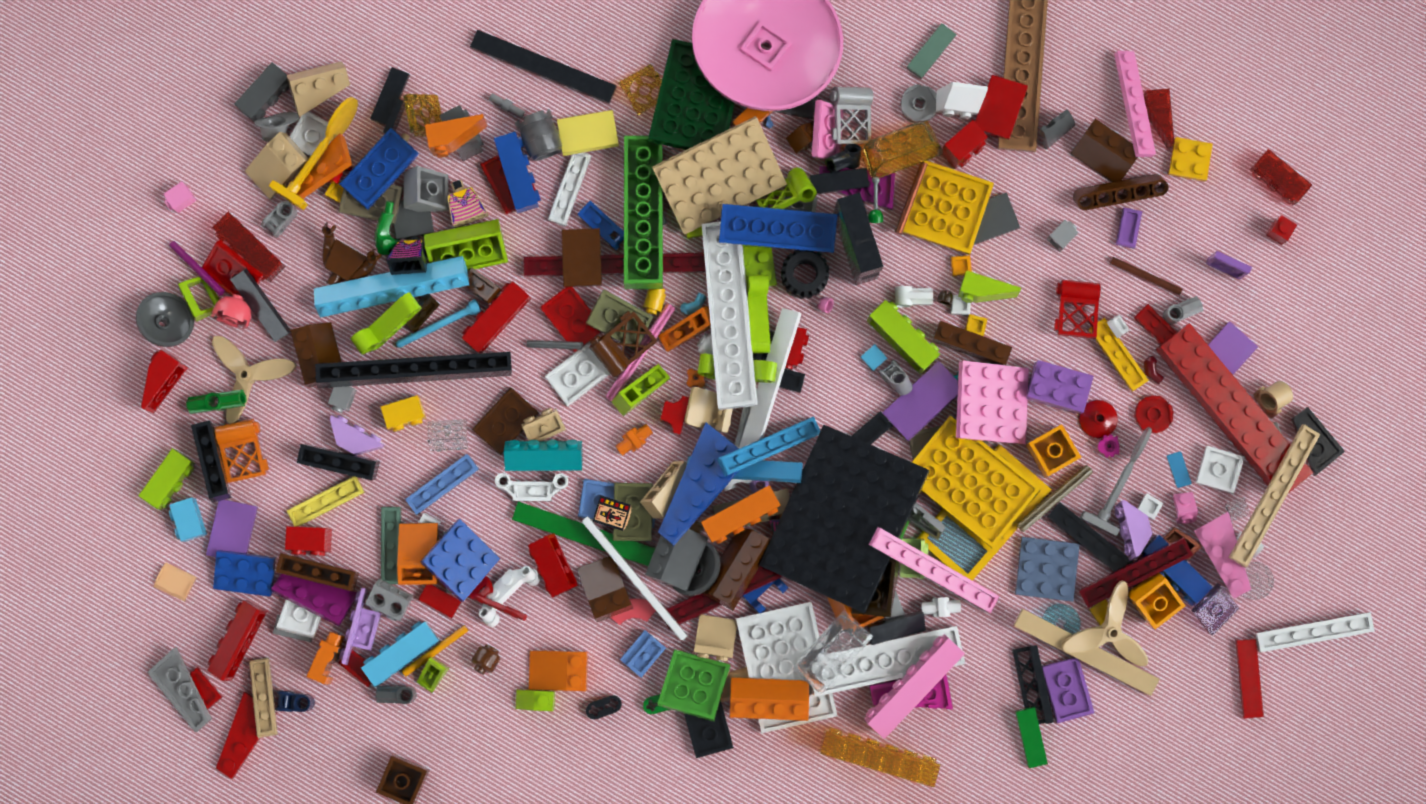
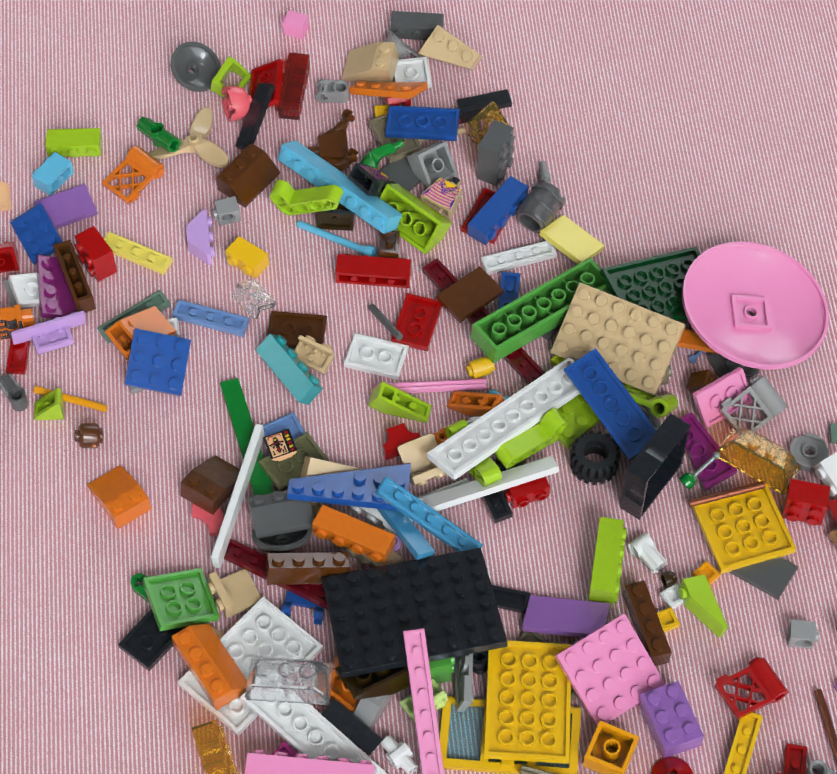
camera: 55 degrees right, 25 degrees down
(161, 378) = (146, 91): red slope -> none
(197, 268) = (250, 67): magenta bar -> none
(211, 461) = (107, 157): black brick -> none
(338, 124) = (439, 74): yellow piece -> none
(338, 462) = (173, 237): black brick -> none
(391, 595) = (88, 338): light grey brick -> none
(400, 653) = (49, 373): medium azure brick -> none
(413, 369) = (286, 236): black brick -> none
(440, 600) = (114, 376): red tile -> none
(451, 134) = (487, 129): orange slope -> none
(481, 597) = (144, 396): red piece -> none
(505, 588) = (156, 412): white plate -> none
(531, 490) = (255, 382): white plate -> none
(535, 700) = (82, 495): lime slope -> none
(543, 66) = (596, 183): black tile -> none
(552, 565) = (204, 432): red brick -> none
(606, 711) = (109, 551): black beam -> none
(607, 315) = (442, 351): olive plate -> none
(608, 351) = (409, 363): reddish brown piece -> none
(625, 85) = (634, 242): clear yellow piece -> none
(634, 439) = (354, 426): orange axle -> none
(643, 653) = (179, 547): medium blue plate -> none
(826, 304) = (588, 493): bright pink hinge -> none
(840, 181) = (698, 437): black tile -> none
(848, 158) = (716, 426): black piece -> none
(873, 357) = (571, 559): medium azure tile -> none
(896, 378) = (568, 584): light grey piece -> none
(1118, 326) = (765, 733): white tile -> none

